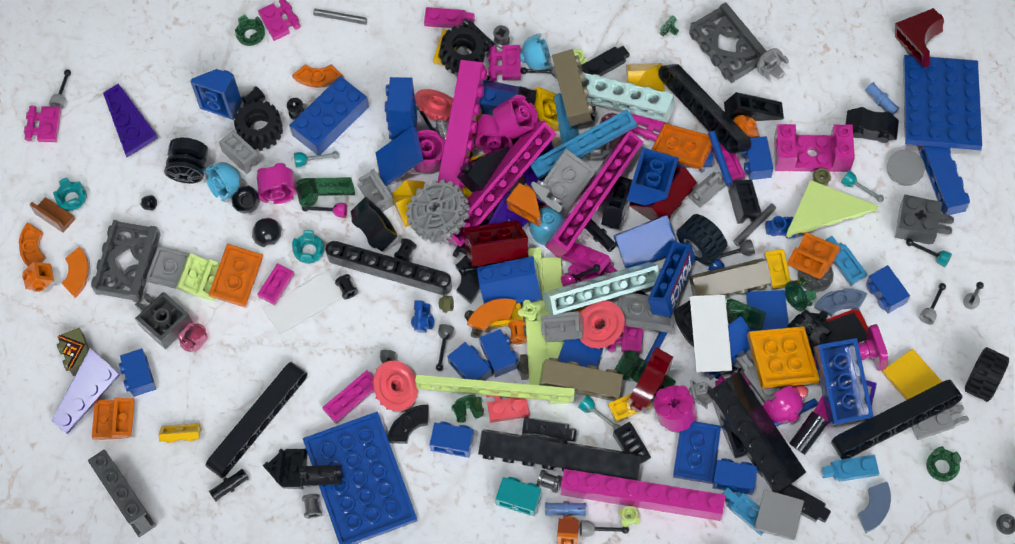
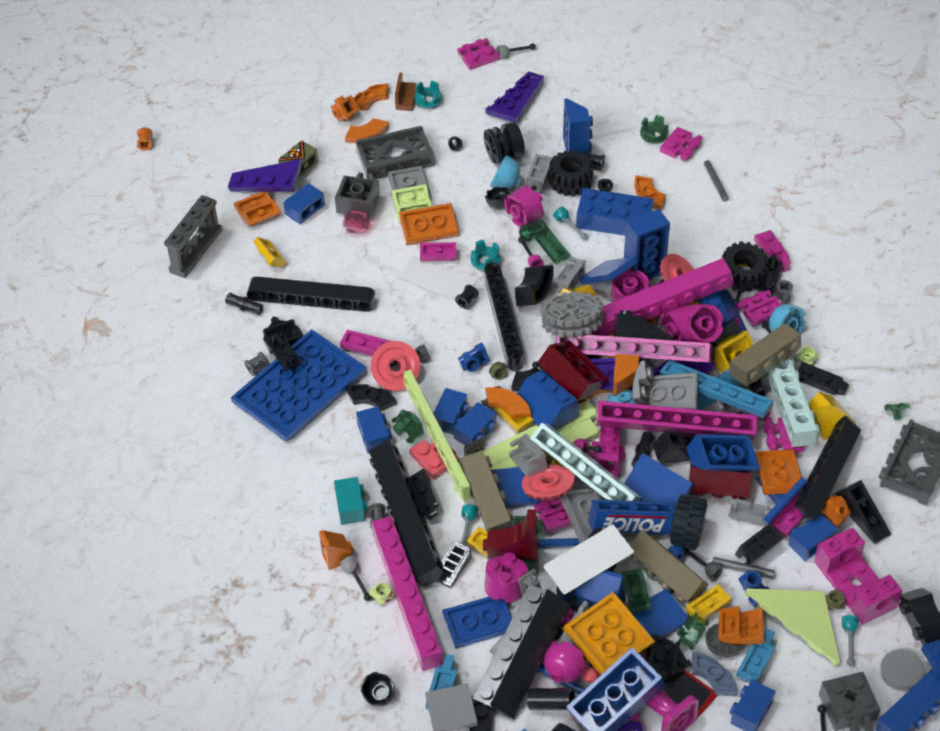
camera: 60 degrees right, 15 degrees down
(266, 232) = (481, 224): black hair -> none
(405, 244) = (527, 320): black bush -> none
(445, 332) = (470, 382): hinge -> none
(517, 332) = (505, 431): orange bush -> none
(531, 316) = (528, 427): yellowish green plate -> none
(565, 508) = (359, 541): medium blue pin -> none
(735, 476) = (469, 658): blue brick -> none
(773, 58) = (921, 510): light grey piece -> none

